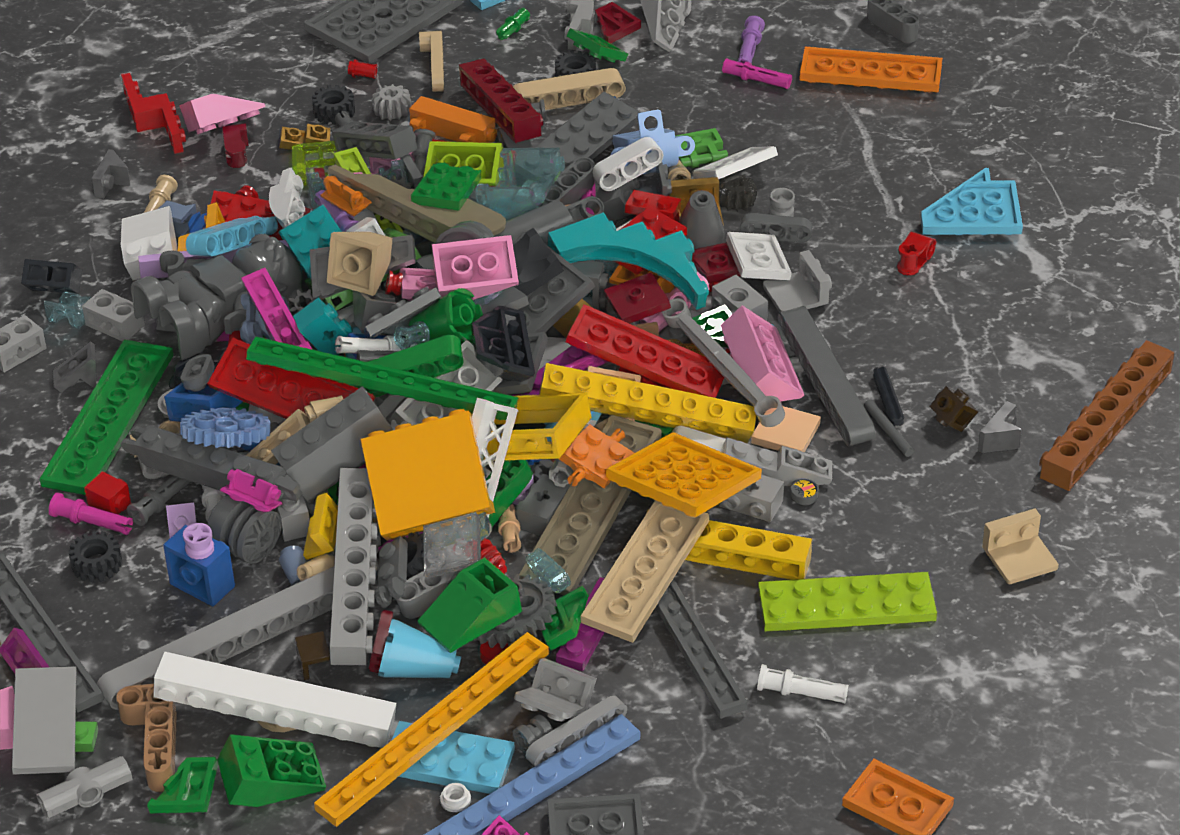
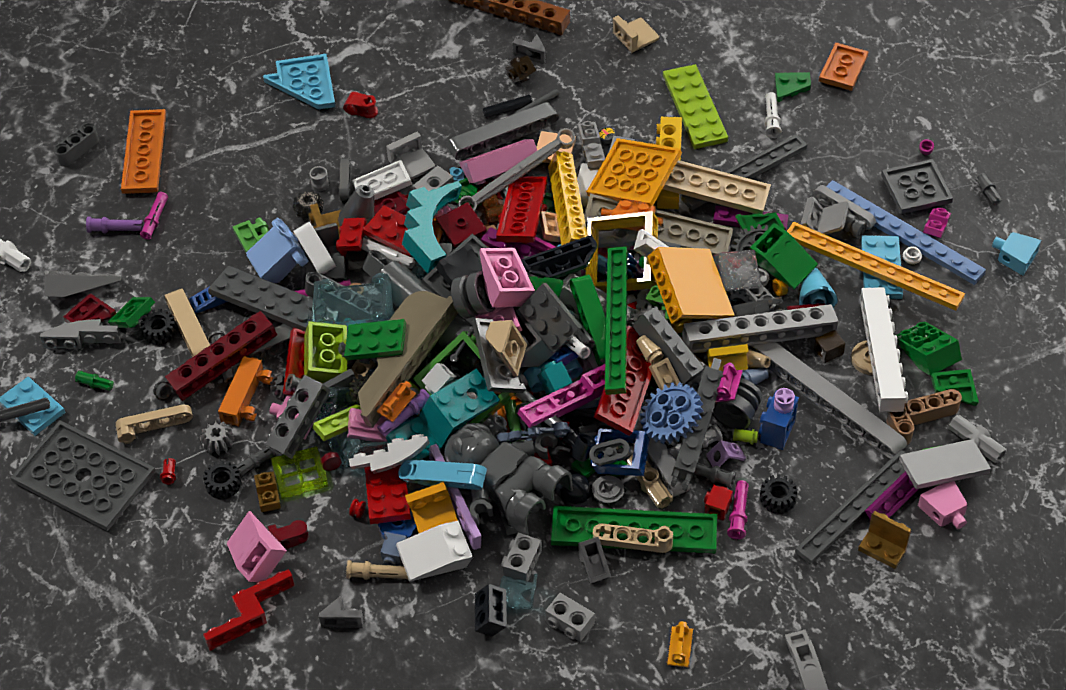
camera: 100 degrees left, 10 degrees up
(71, 423) = (662, 537): none -> tan beam
(548, 570) = (727, 234): clear light blue beam -> none
(736, 162) = (275, 203): white tile -> none
(872, 728) = (791, 84): none -> green wing

